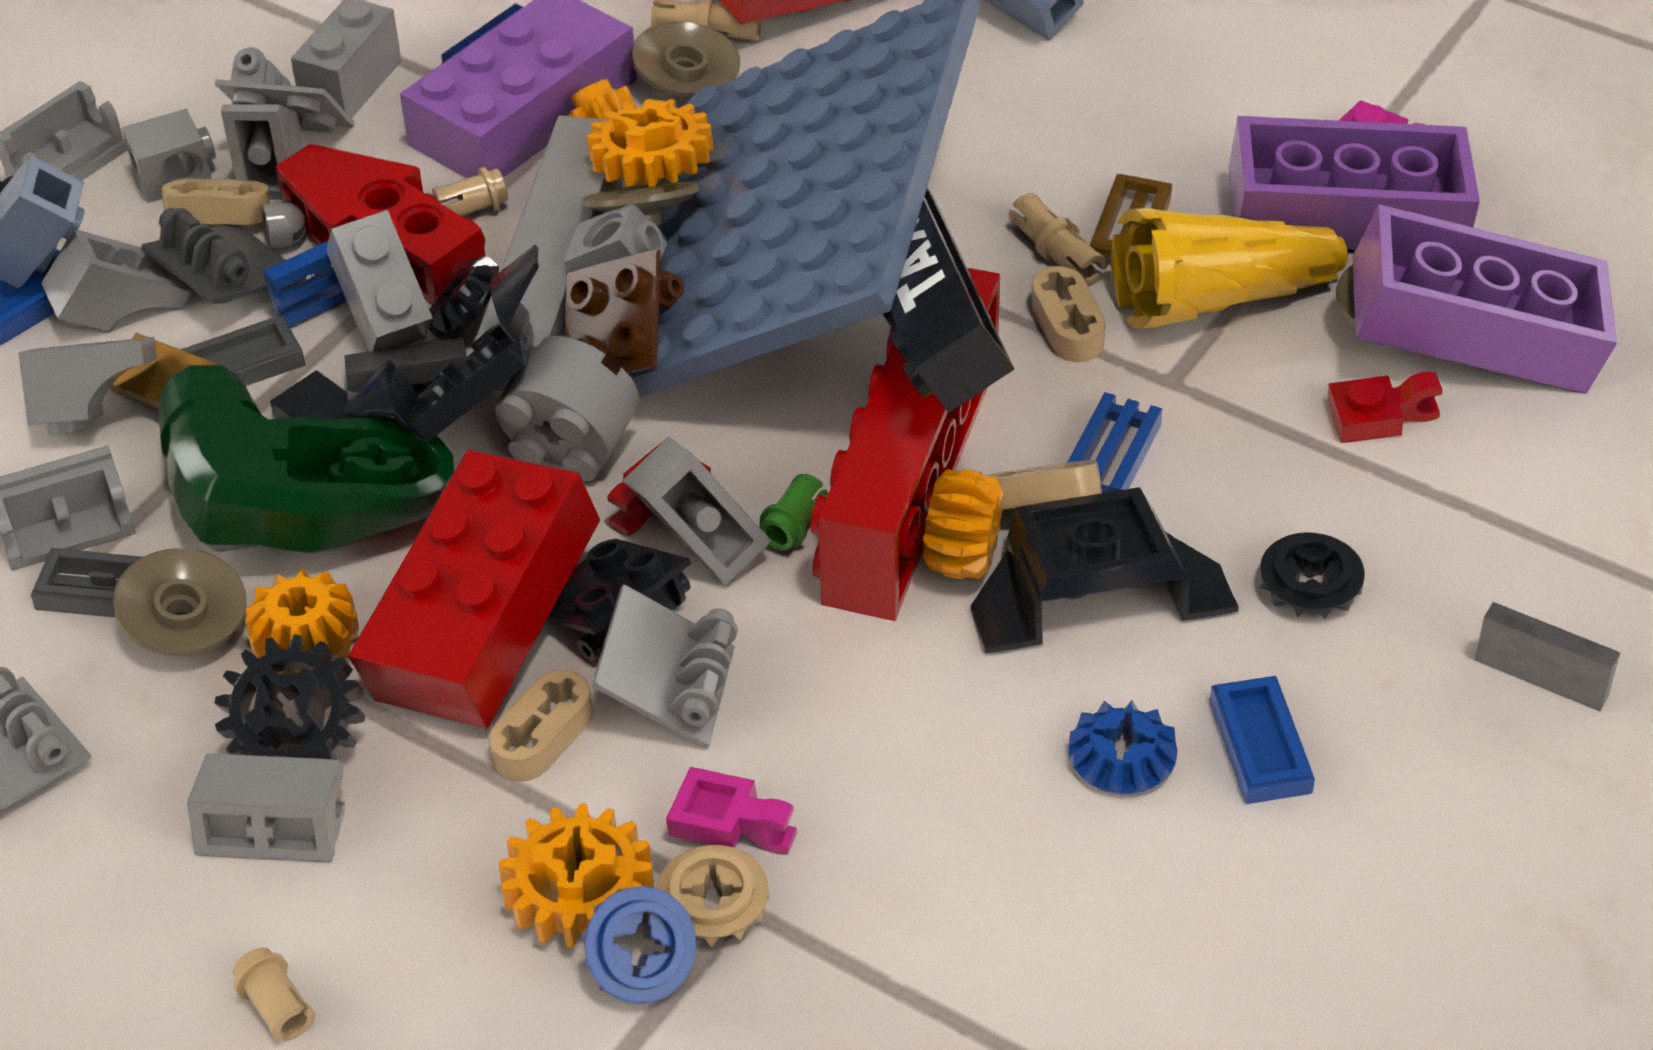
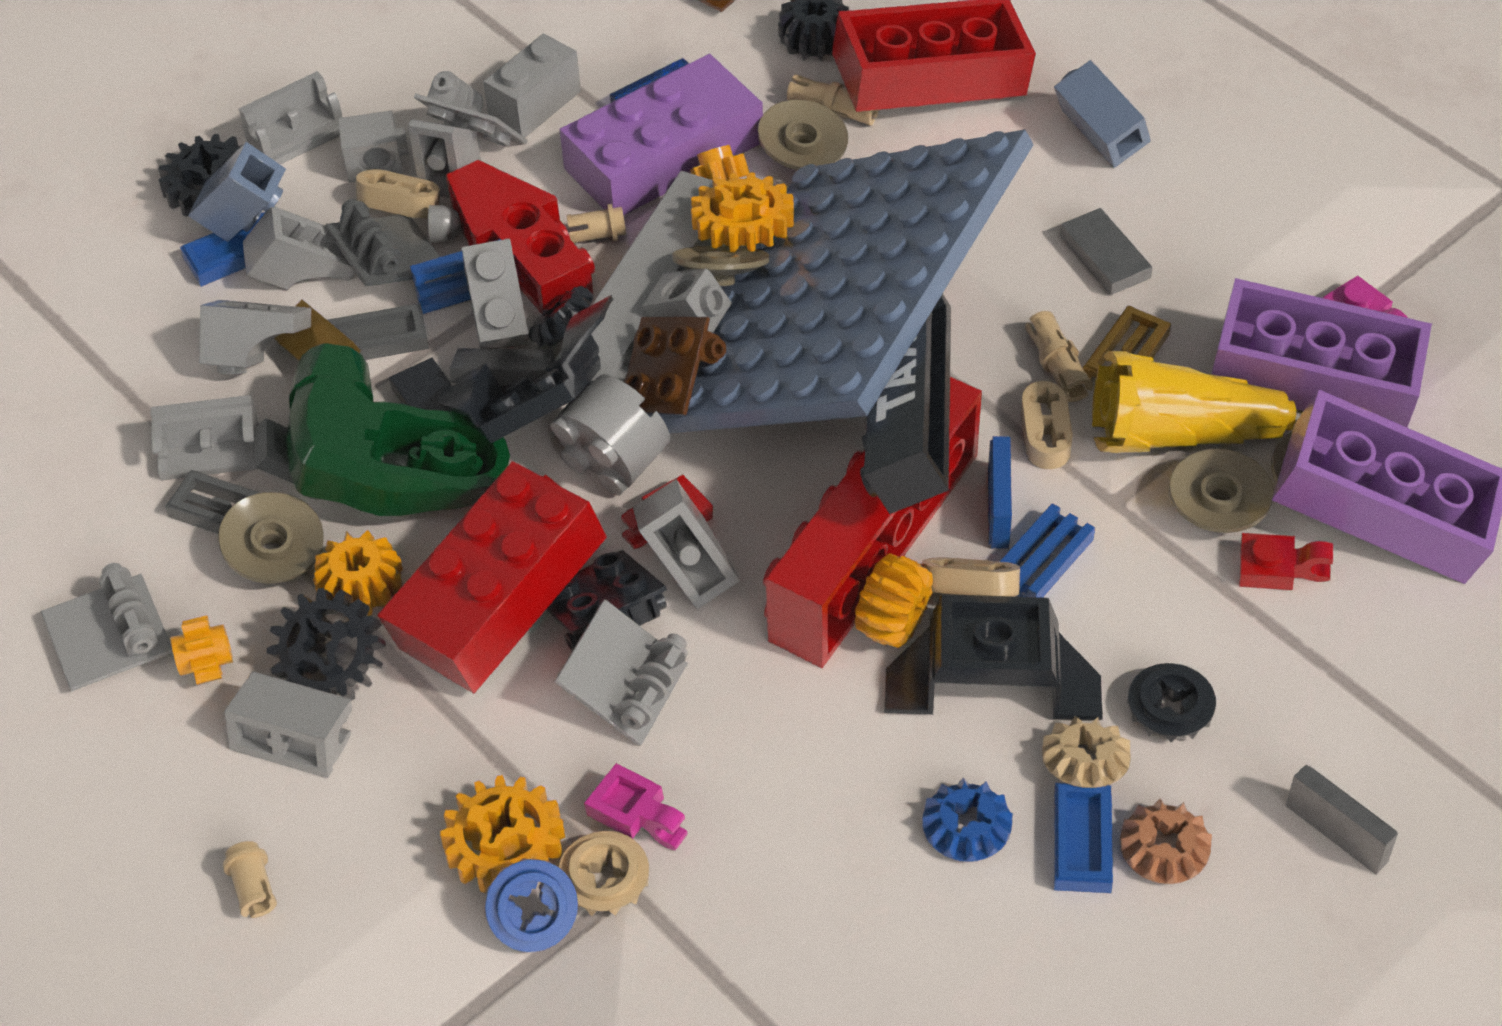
camera: 15 degrees right, 5 degrees up
(131, 744) = (201, 649): none -> light orange gear
(154, 506) = (272, 449): none -> dark grey plate
(534, 720) = (517, 700): tan beam -> none
(788, 518) = (754, 563): bright green pin -> none
(1042, 391) = (999, 492): none -> blue tile
(1071, 124) = (1105, 251): none -> flat silver tile
(1217, 648) = (1074, 765): none -> tan gear
(1291, 343) = (1226, 475): none -> dark tan dish
(1362, 744) = (1162, 862): none -> nougat gear

